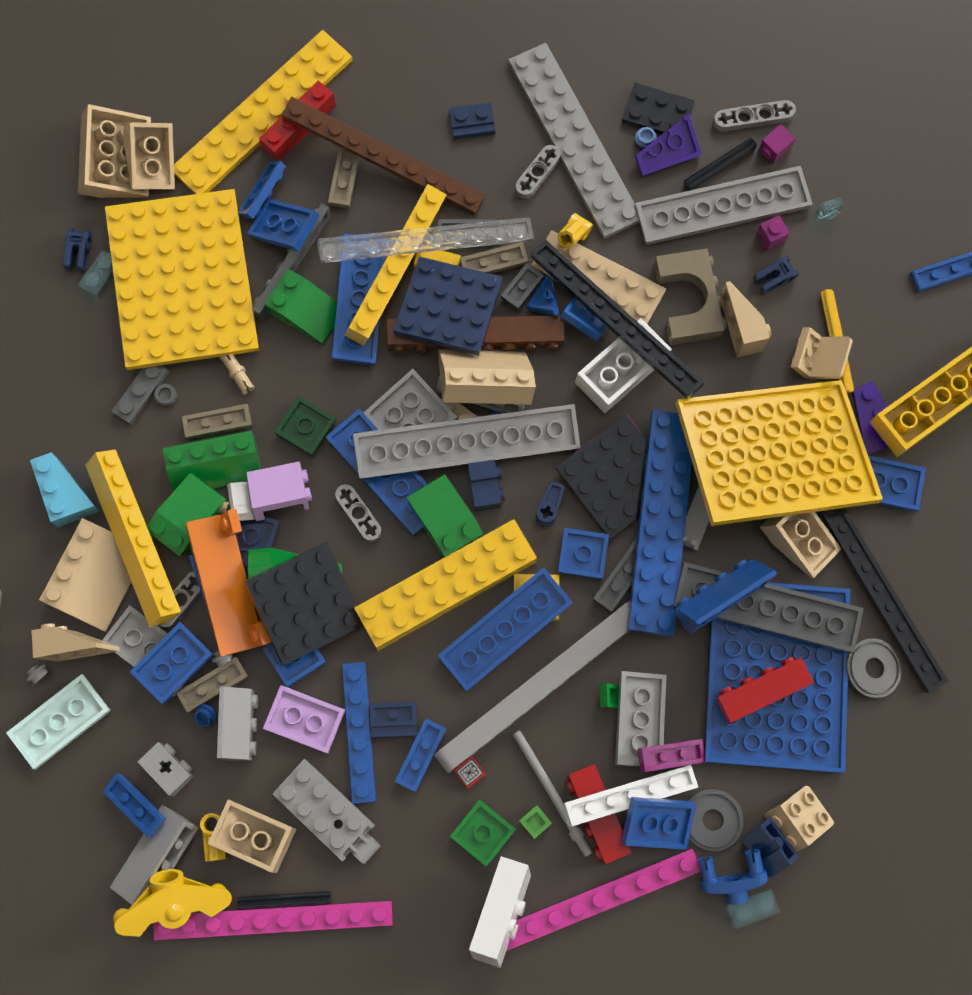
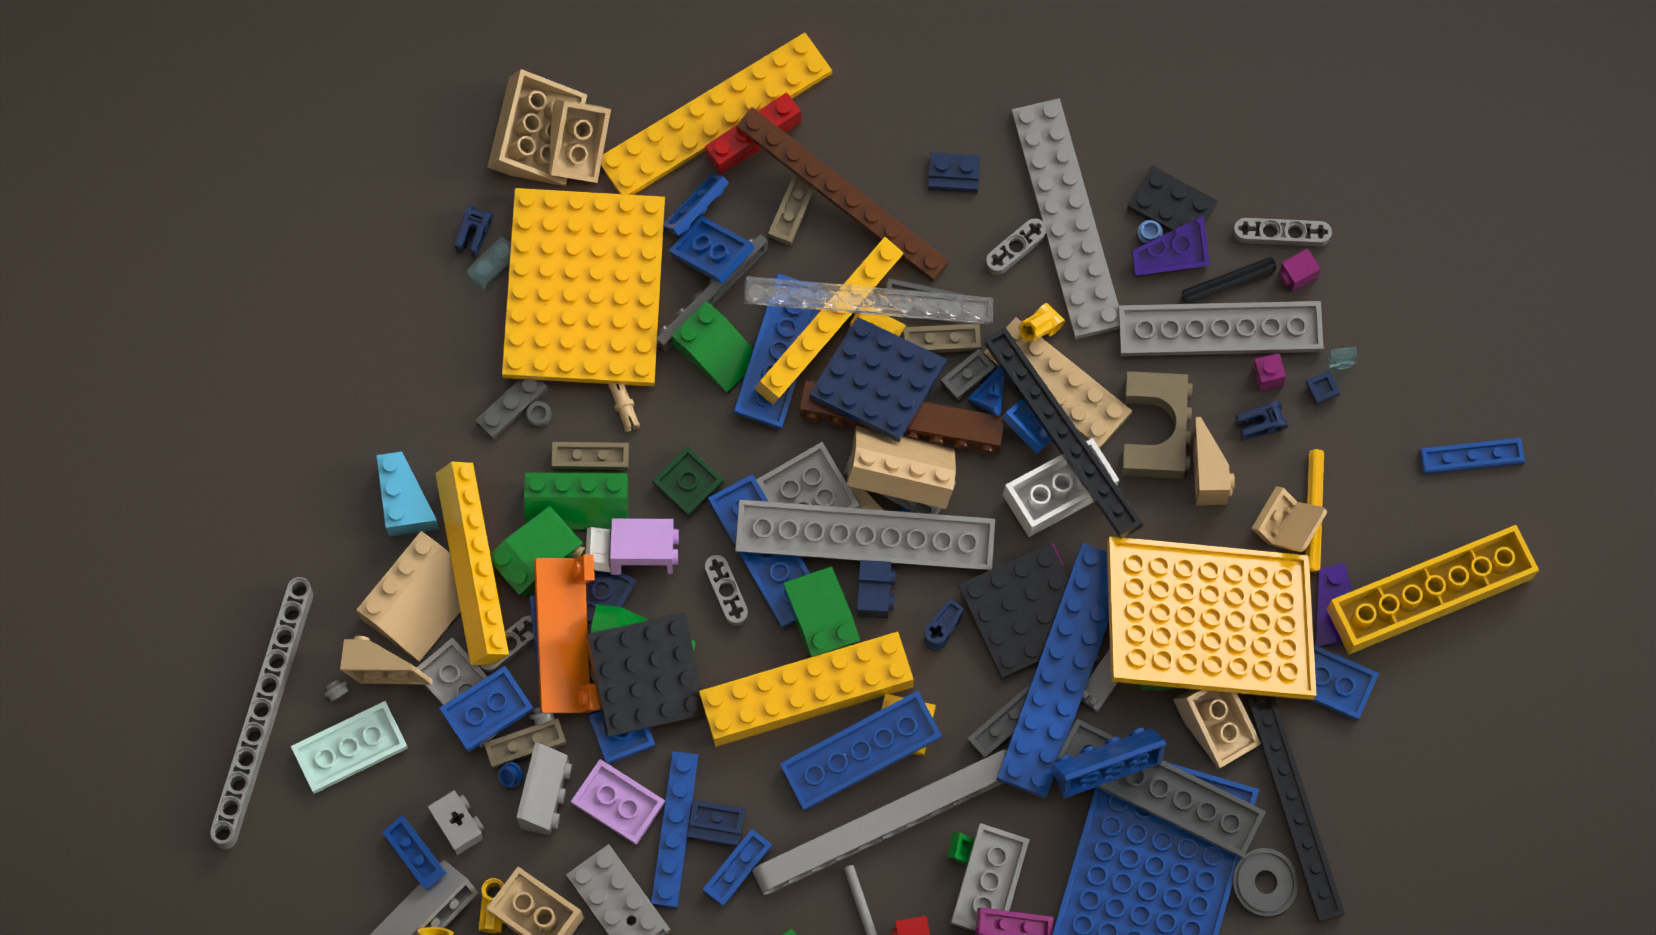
camera: 15 degrees right, 5 degrees down
(469, 772) = (787, 898): tile -> none
(583, 553) = (967, 687): blue plate -> none
(764, 690) = (1132, 877): red brick -> none
(819, 237) = (1322, 388): none -> dark blue plate

